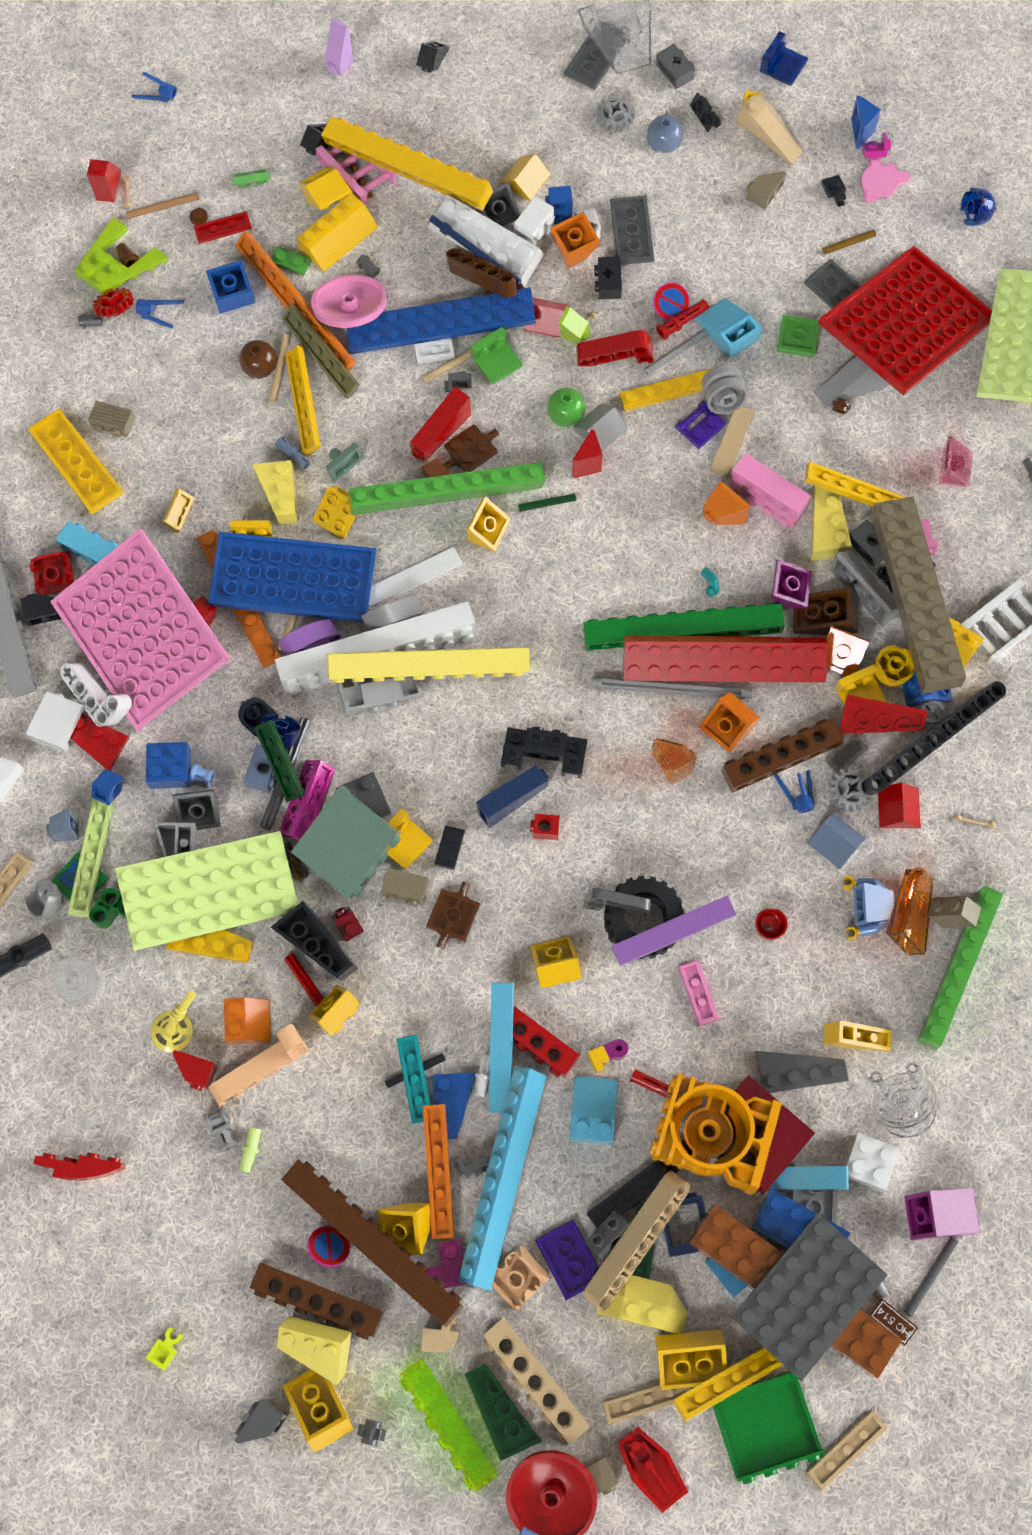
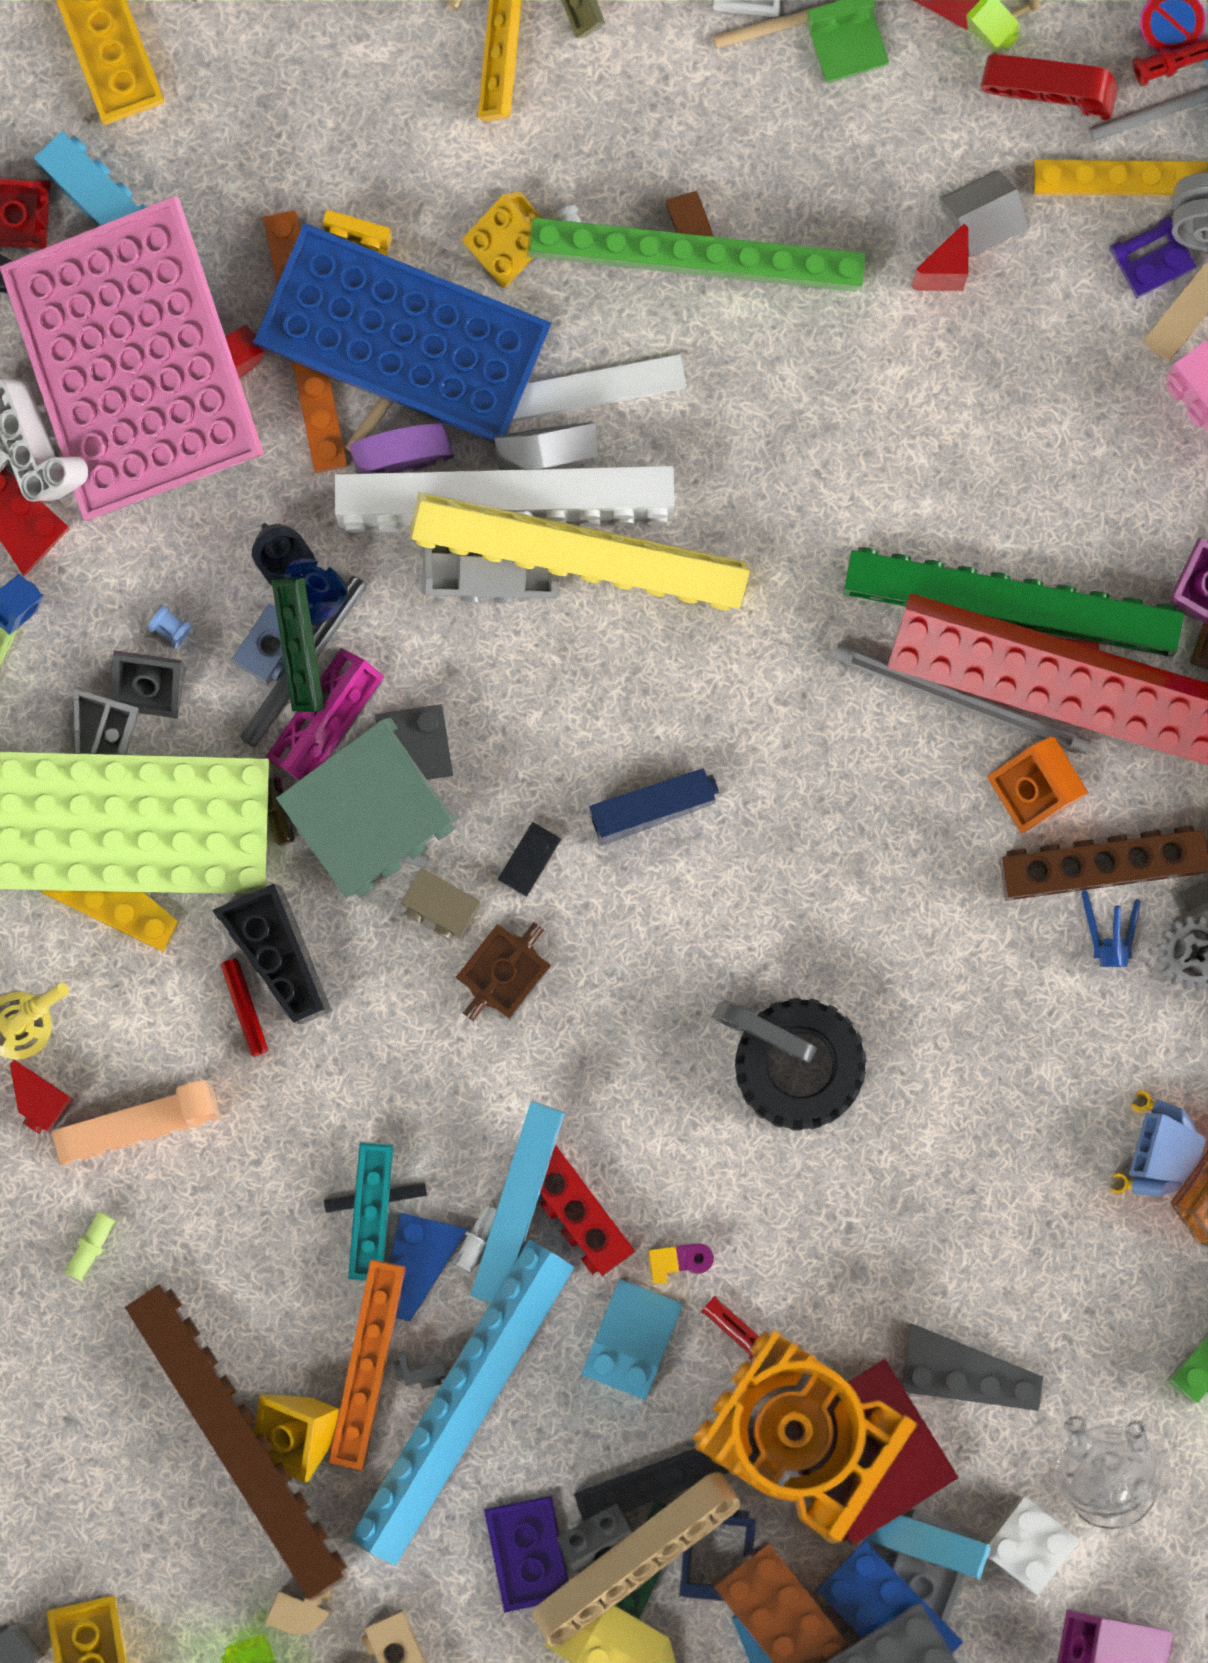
camera: 15 degrees right, 10 degrees up
(168, 765) = (120, 595): blue brick -> none
(177, 510) = (246, 160): yellow plate -> none
(219, 1125) = (53, 1200): light grey connector -> none
(247, 1020) = (137, 1045): orange slope -> none
(266, 1274) = (54, 1457): reddish brown brick -> none
(279, 488) = (422, 172): light yellow wedge -> none
(292, 453) = (460, 113): sand blue pin -> none
(316, 1346) = (111, 1570): light yellow wedge -> none
(328, 1247) = (168, 1428): piece -> none
(334, 1010) = (276, 1069): yellow slope -> none
(343, 461) = (540, 151): sand green tile -> none
(347, 923) = (333, 935): dark red bracket -> none
(412, 842) = (473, 833): yellow bracket -> none
(441, 424) = (719, 136): red slope -> none
(451, 1261) = (348, 1506): dark pink plate -> none
(459, 379) = (774, 62): dark grey bracket -> none
(470, 449) = (757, 190): reddish brown plate -> none
(487, 525) = (746, 335): yellow slope -> none
(519, 1277) = (444, 1558): light nougat slope -> none
(546, 745) = (729, 737): black bracket -> none
(547, 502) = (856, 320): dark green bar -> none
(550, 834) = (705, 867): red brick -> none
(555, 962) = (641, 1092): yellow slope -> none
(566, 407) = (938, 161): bright green cylinder -> none
(673, 759) = (927, 824): clear orange slope -> none
(673, 930) = (838, 1104): medium lavender tile -> none
(698, 993) = (850, 1206): bright pink tile -> none
(713, 588) = (1086, 538): teal arm -> none
(725, 507) = (1145, 419): orange slope -> none
(768, 918) = (993, 1122): red hair -> none
(836, 840) = (1146, 1028): sand blue slope -> none
(856, 1036) = (1074, 1348): yellow slope -> none

